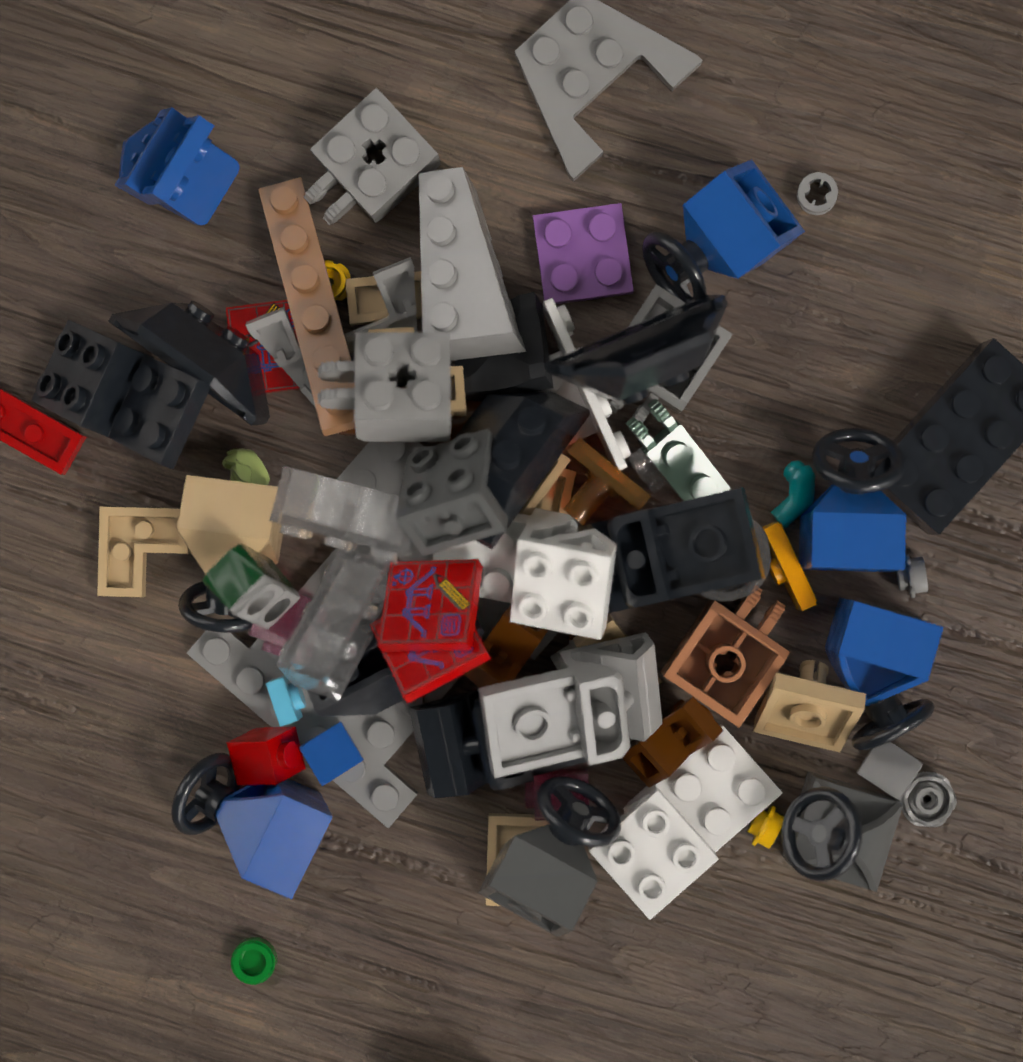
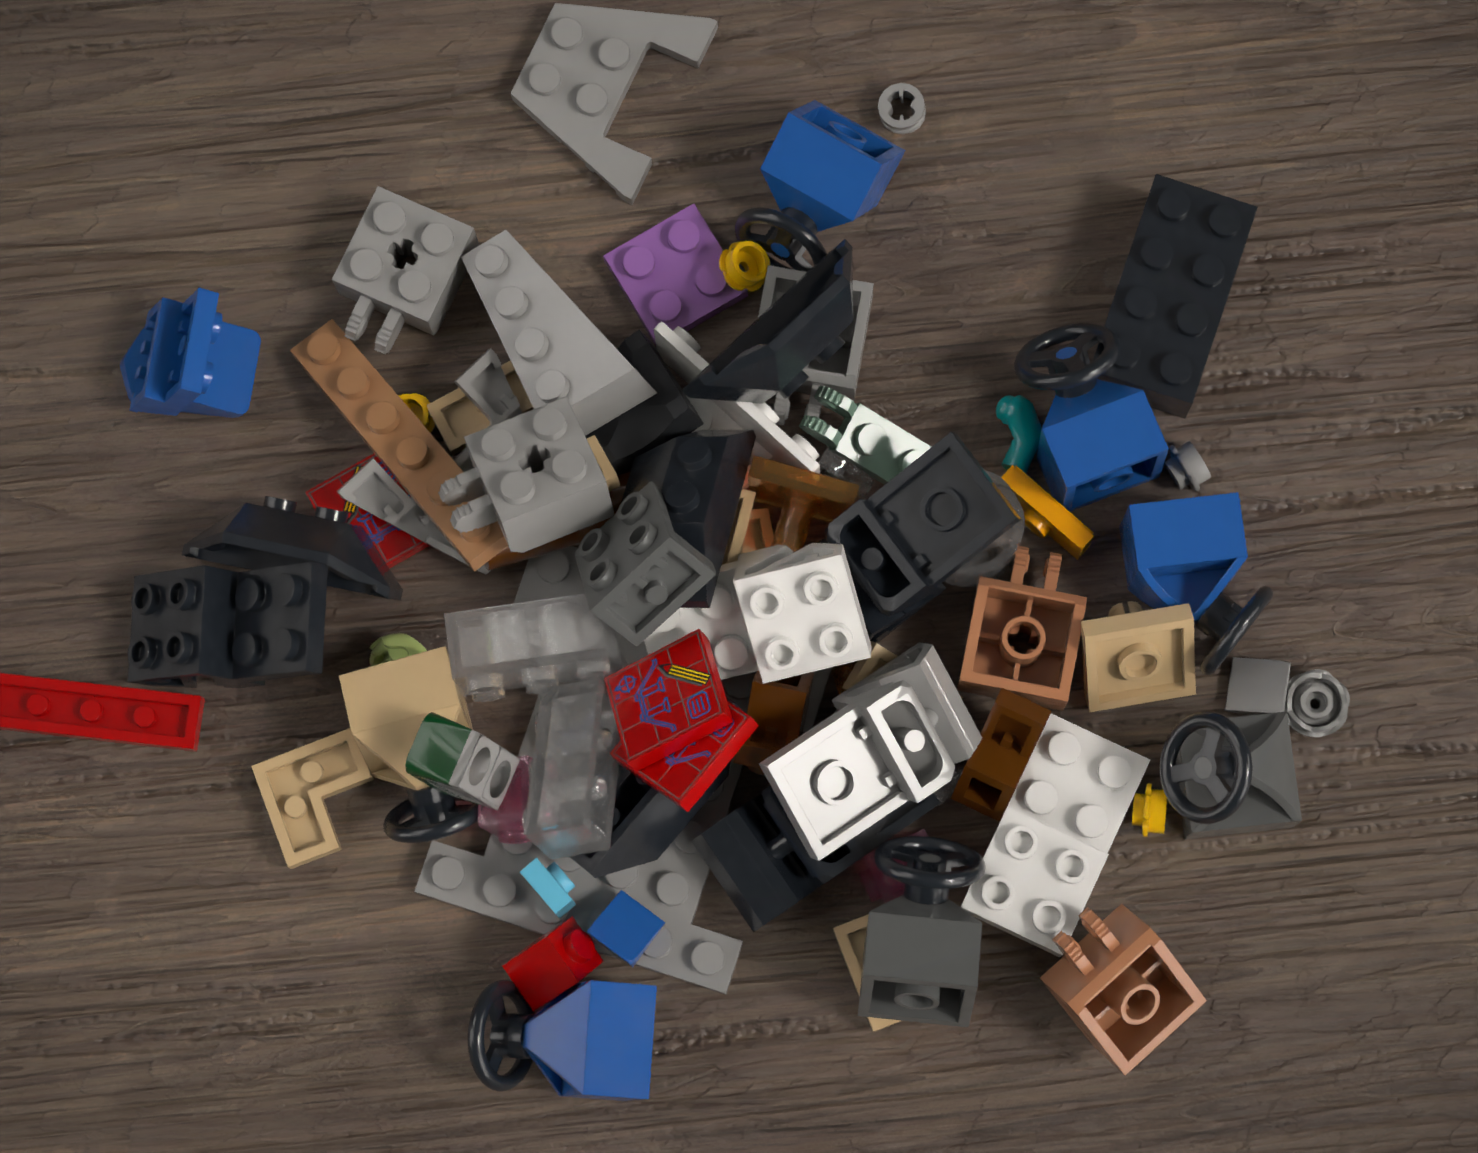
camera: 15 degrees left, 10 degrees down
(648, 272) = (752, 258): none -> yellow plate
(684, 958) = (1121, 986): none -> nougat hinge

